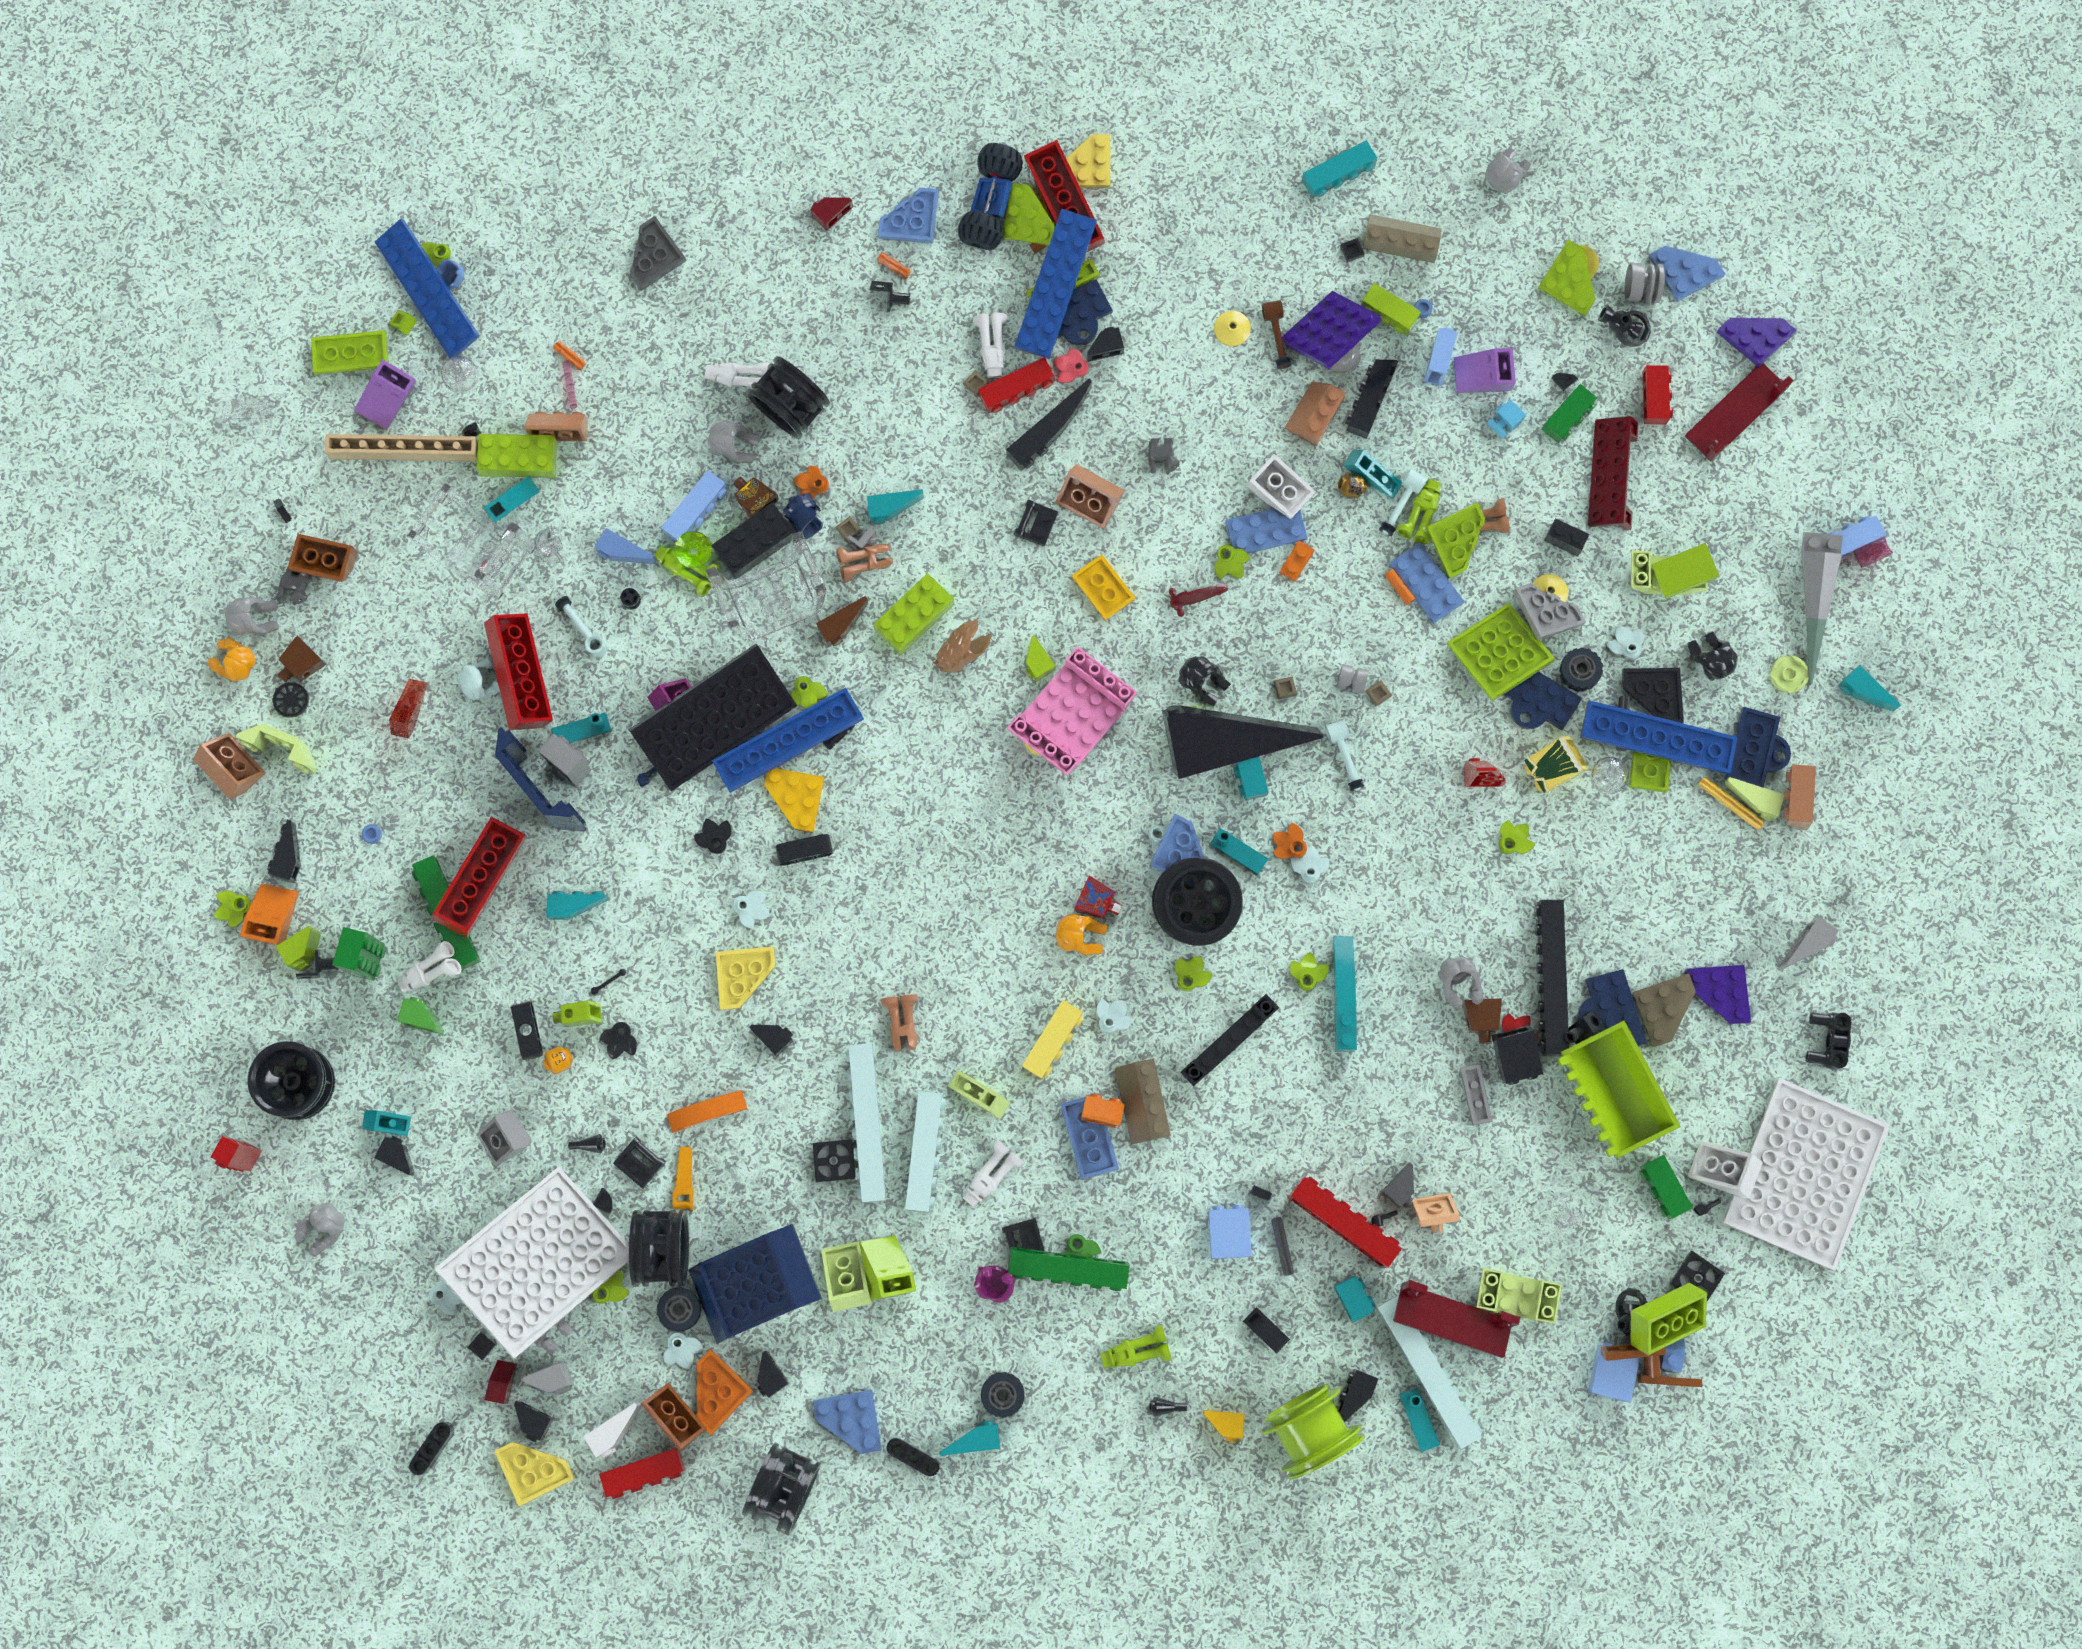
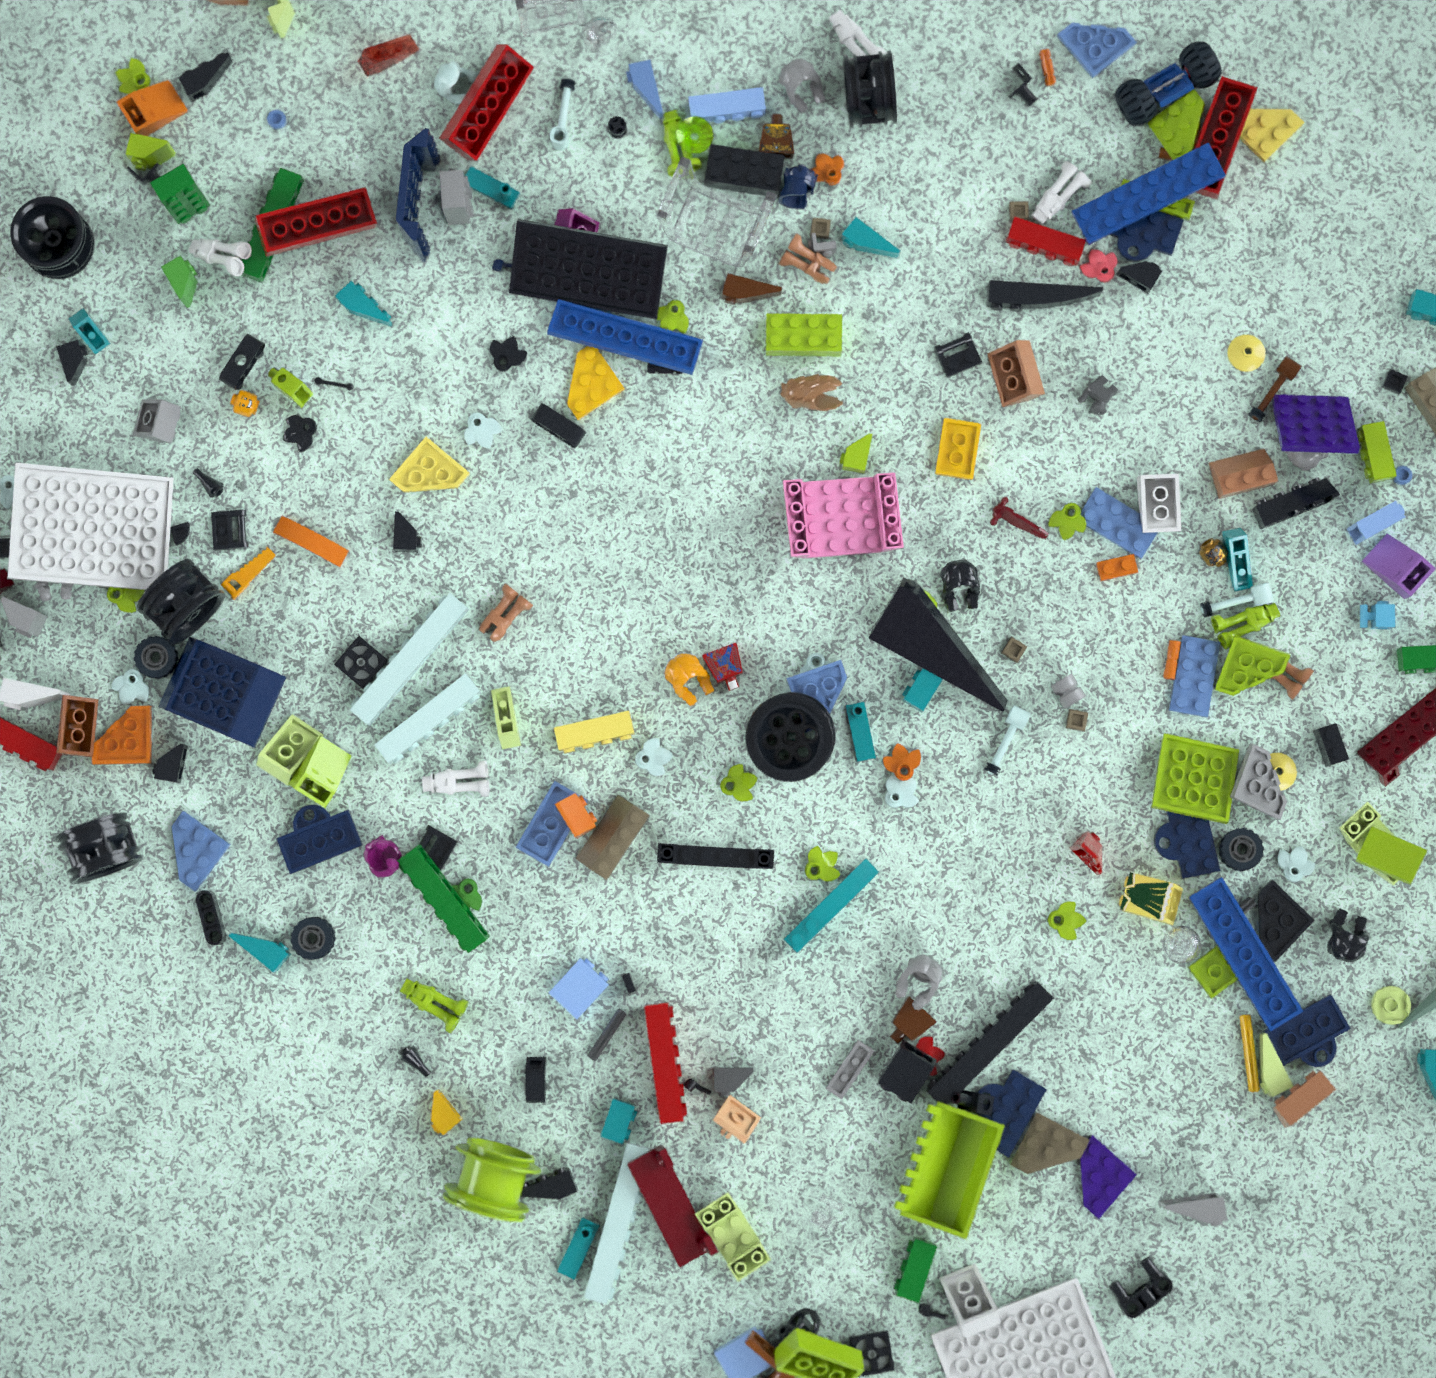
camera: 45 degrees right, 5 degrees up
(932, 1319) = (318, 839): none -> dark blue plate

